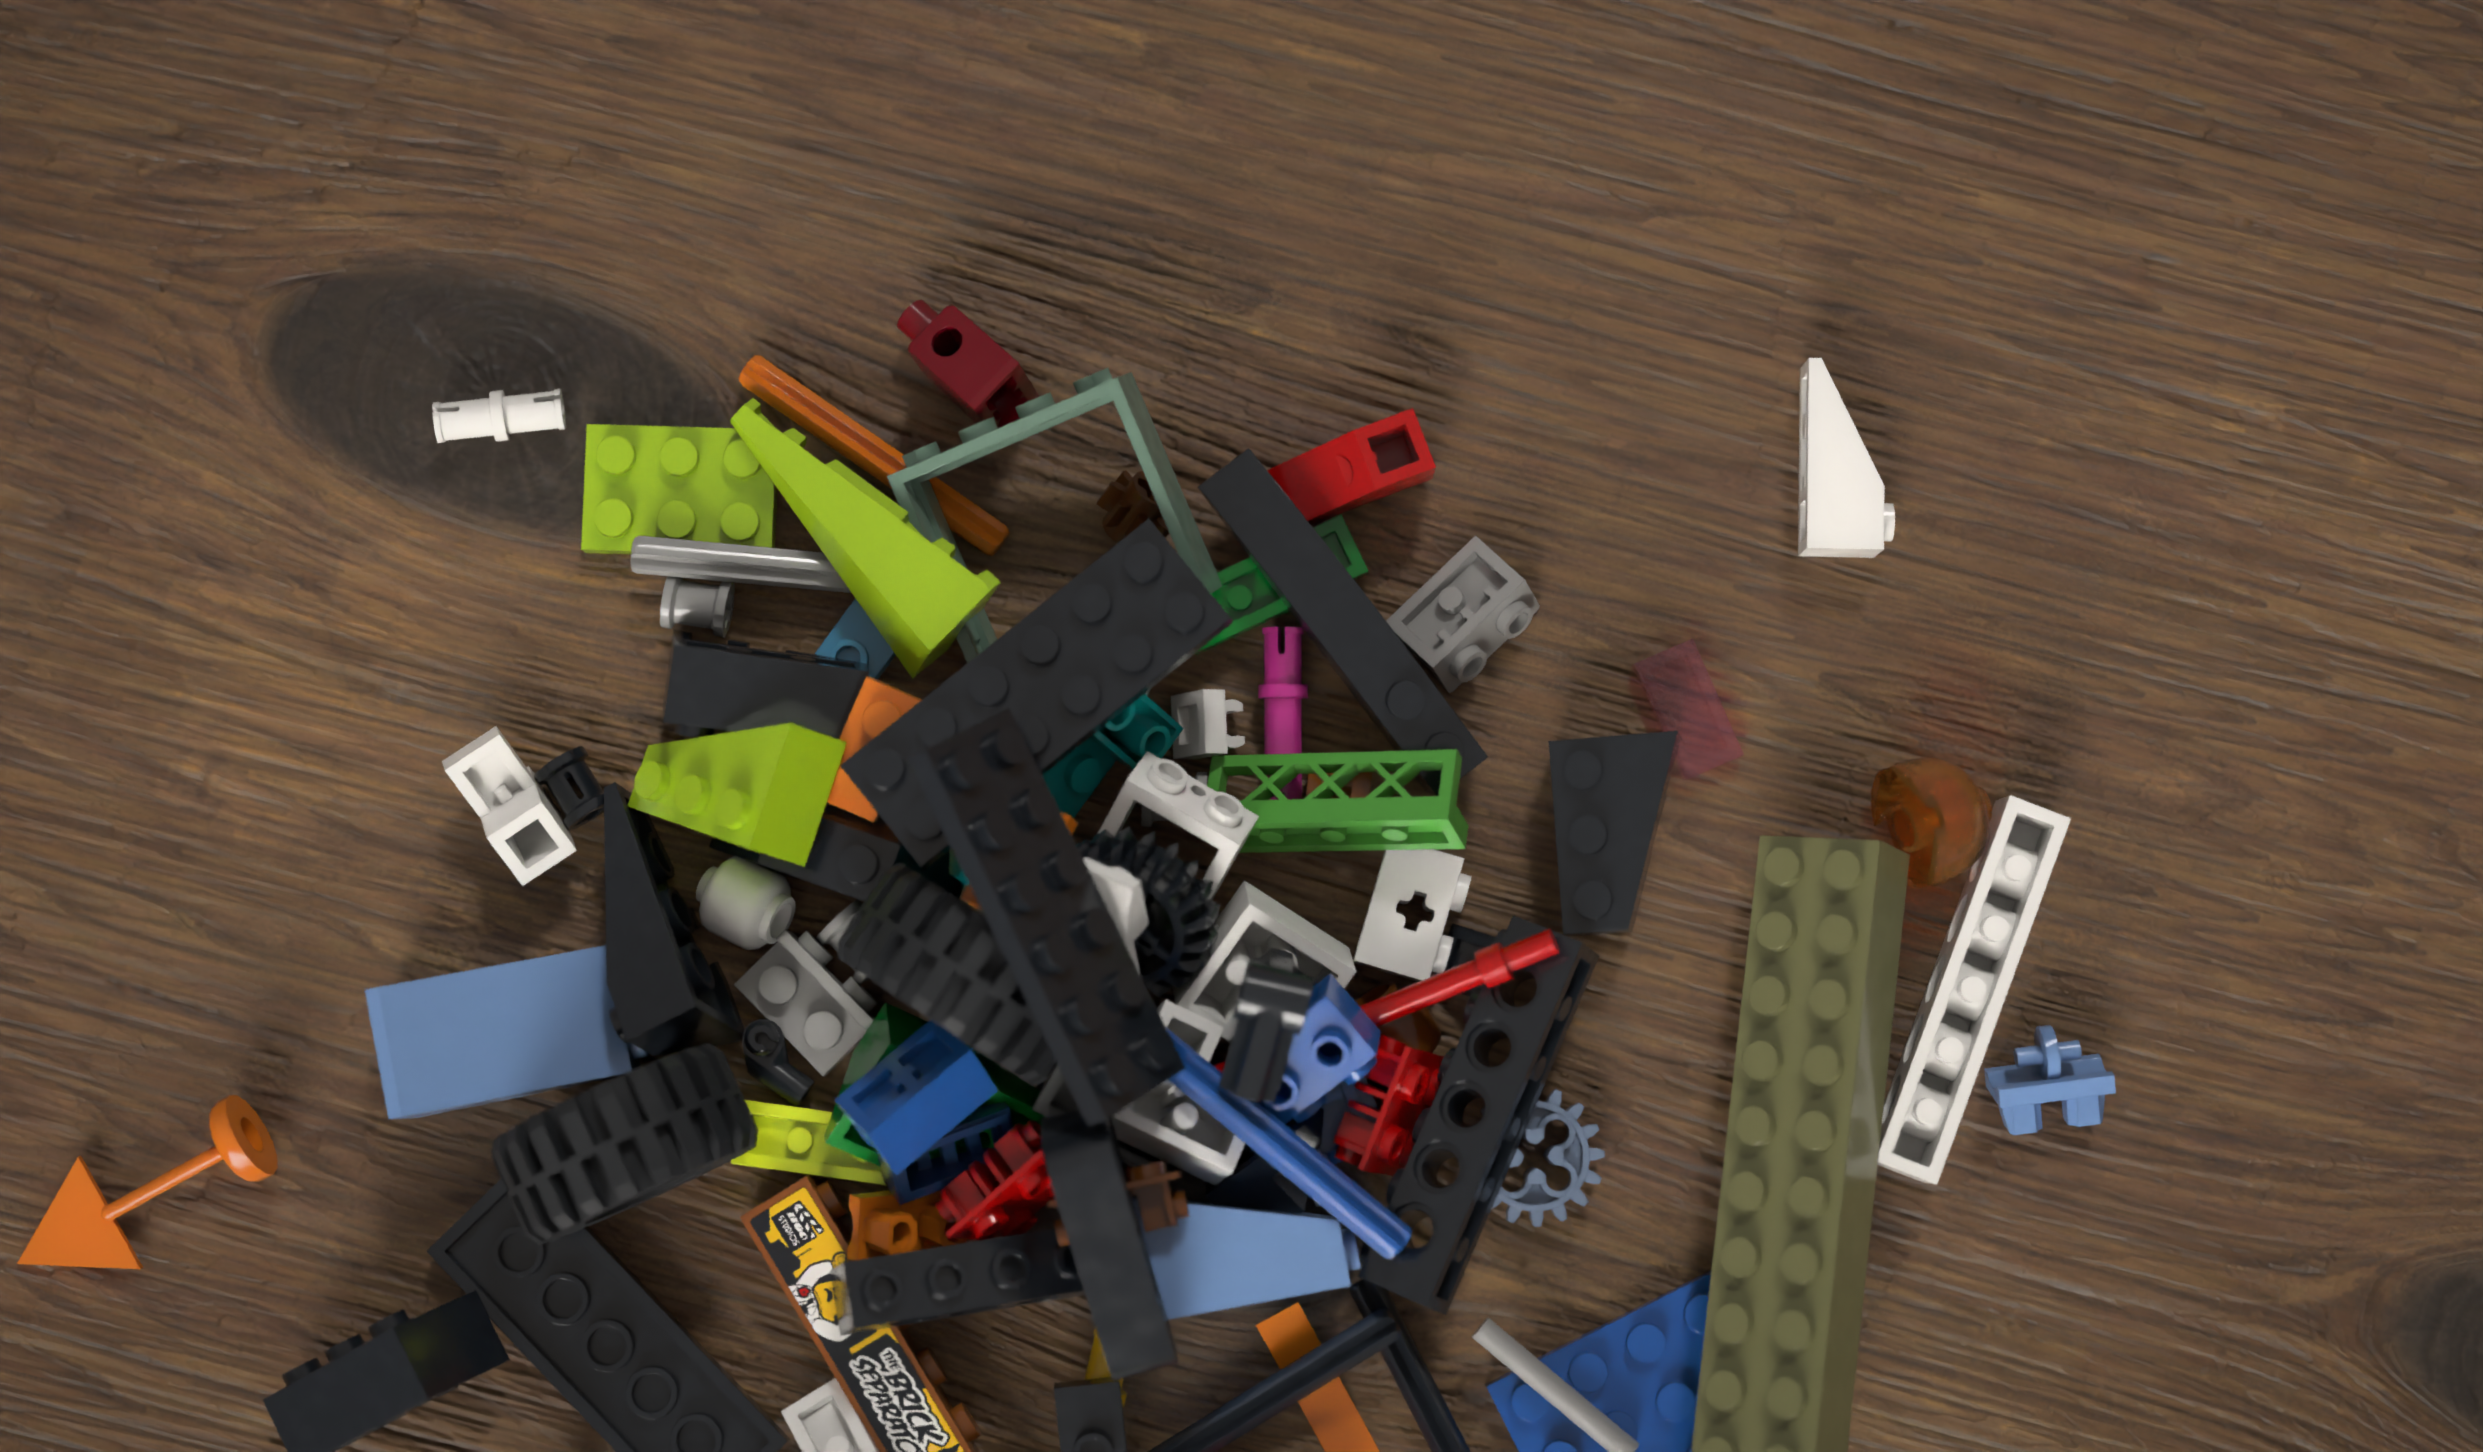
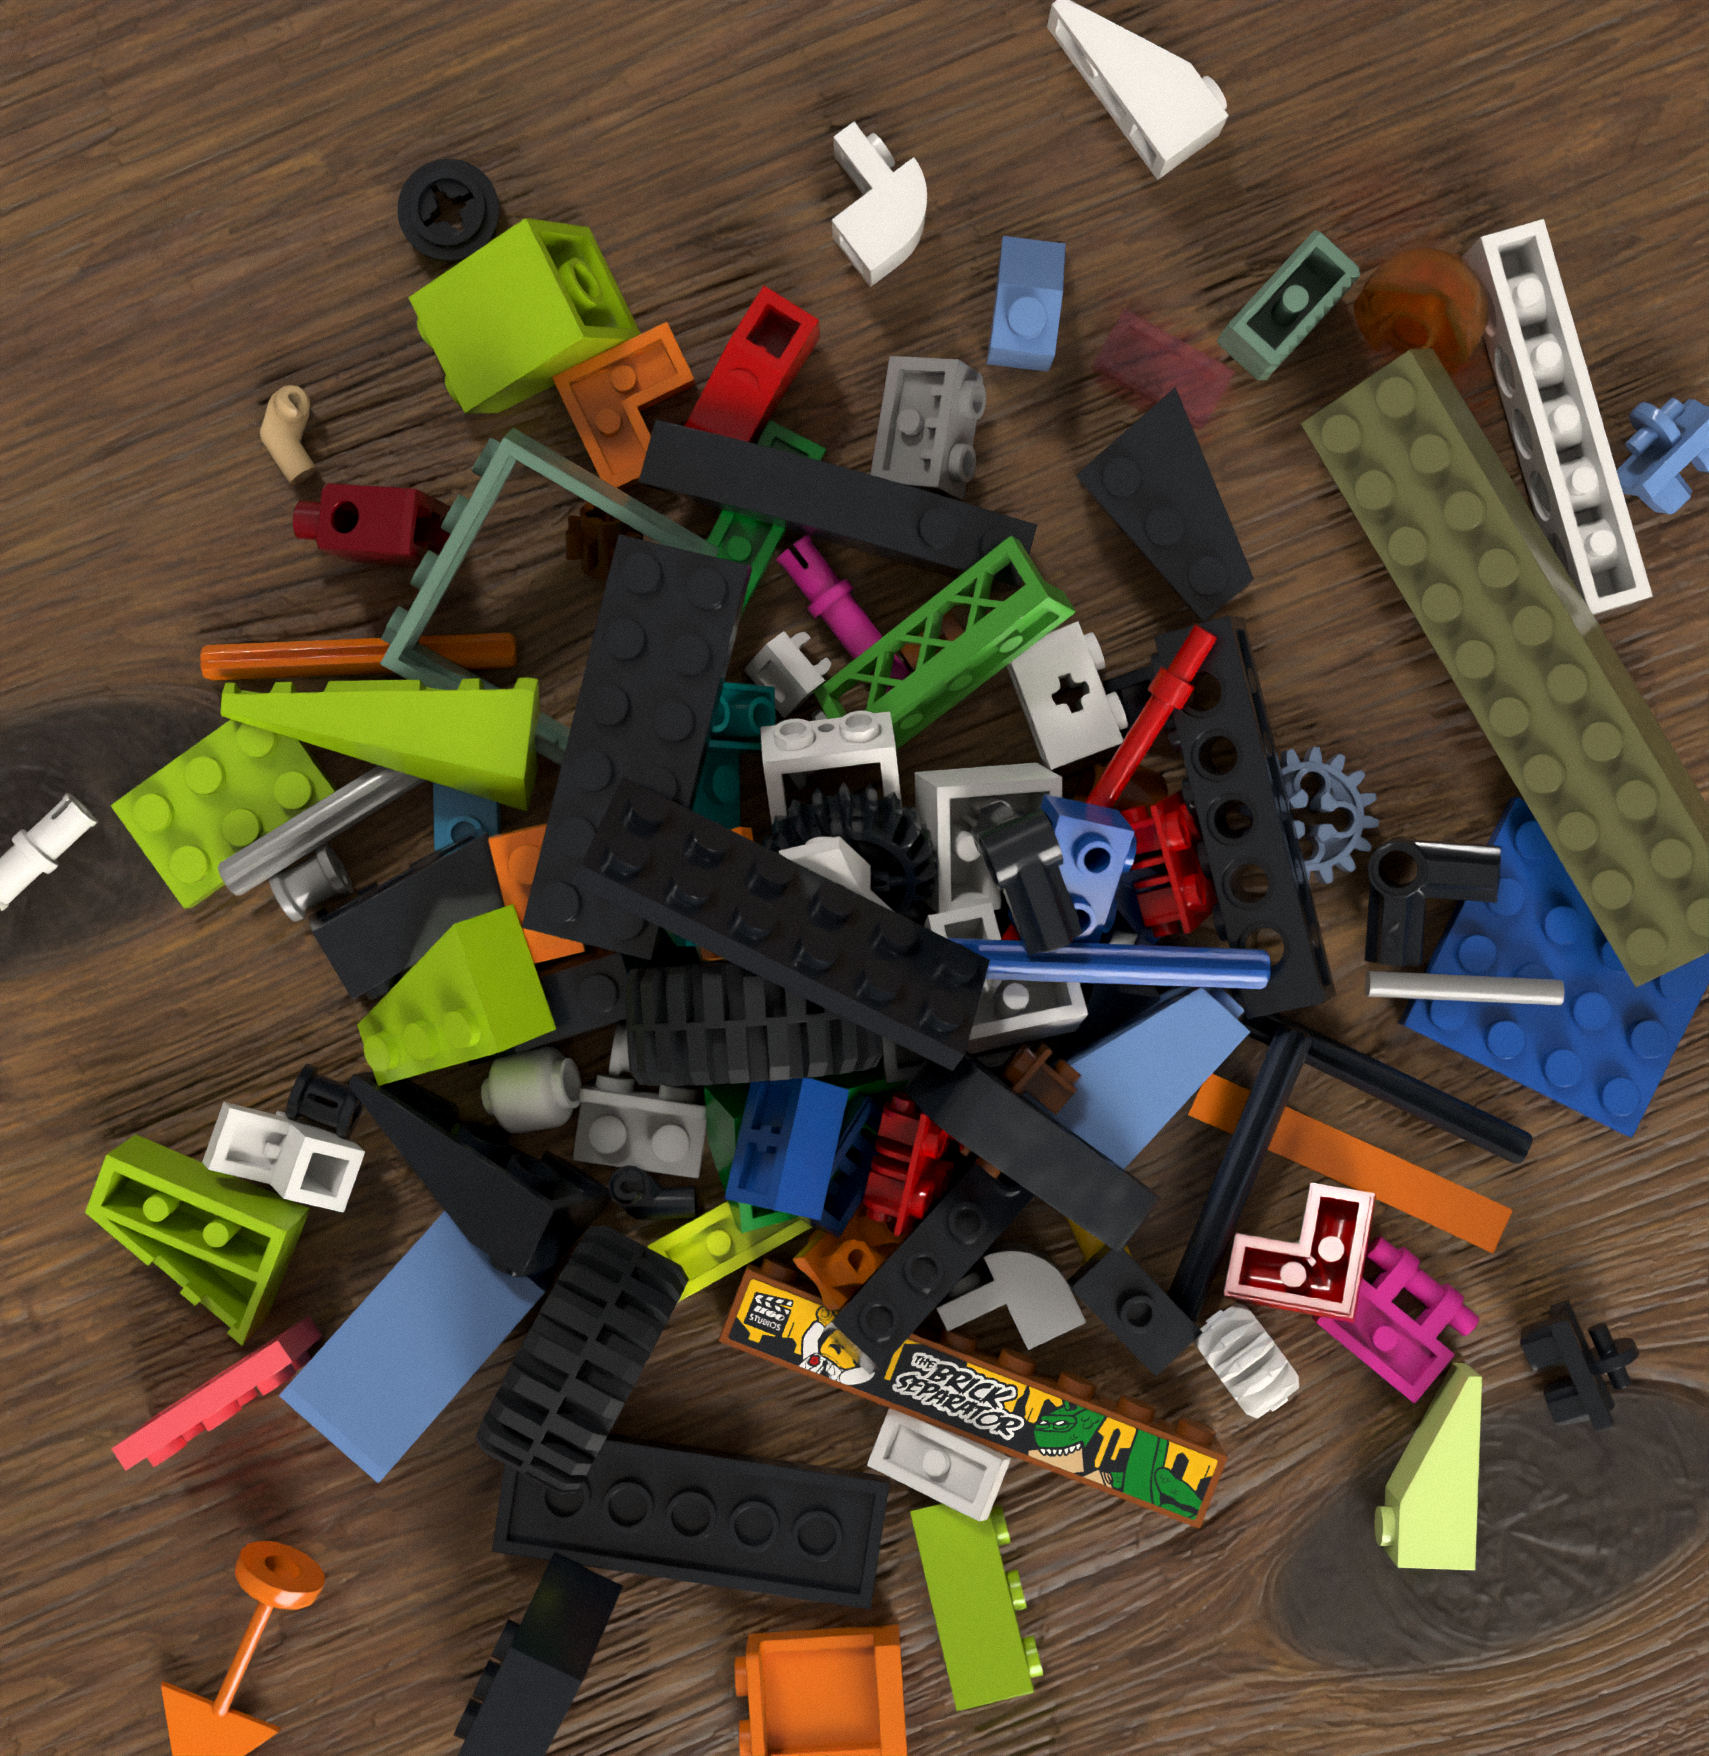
camera: 40 degrees left, 5 degrees up
(311, 958) = (219, 1397): none -> coral plate
(399, 814) = (200, 1227): none -> lime wedge
(949, 234) = (283, 431): none -> tan arm
(1021, 1361) = (1024, 1282): none -> light grey brick
(1192, 140) = (459, 183): none -> black gear
(1209, 288) = (521, 314): none -> lime slope
(1232, 397) = (610, 392): none -> orange plate
(1559, 427) = (889, 217): none -> white brick
(1607, 1282) = (1443, 872): none -> black piece
(1616, 574) = (1027, 304): none -> medium blue slope
(1821, 735) = (1289, 306): none -> sand green brick

